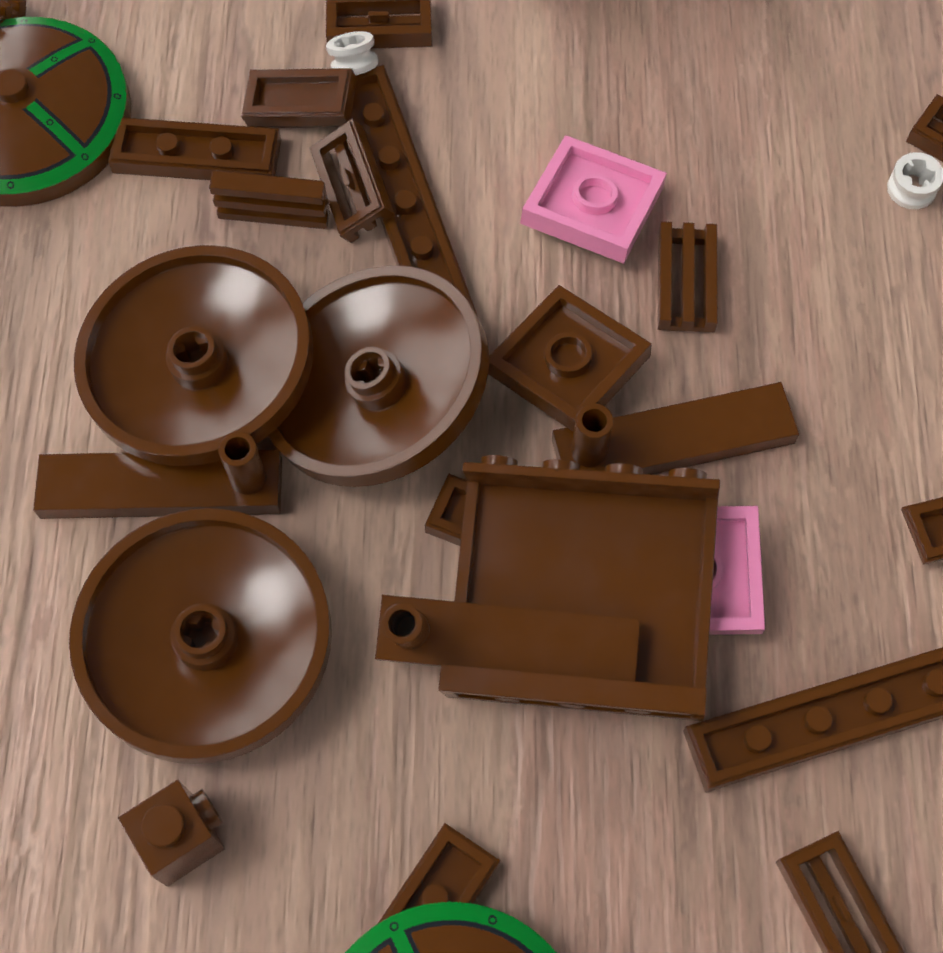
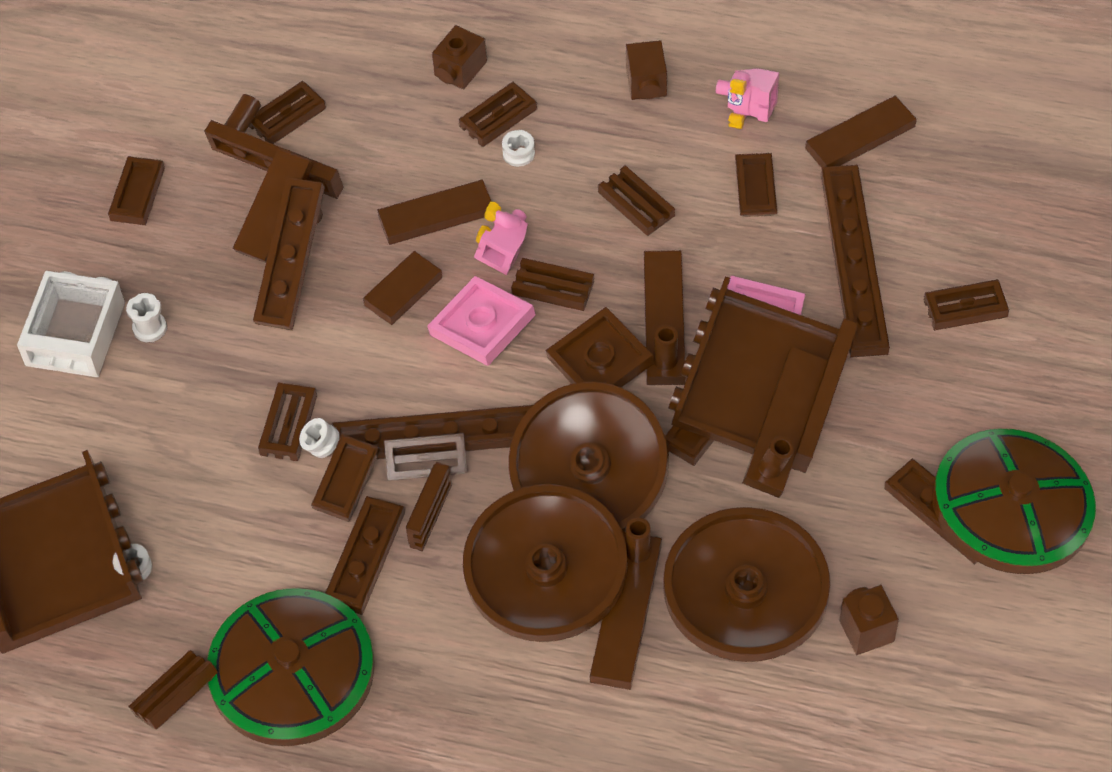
camera: 75 degrees left, 10 degrees down
(625, 96) = (402, 287): none -> reddish brown tile
(738, 191) = (501, 244): none -> bright pink piece
(767, 107) = (434, 212): none -> reddish brown tile
(899, 323) = (641, 196): none -> reddish brown tile

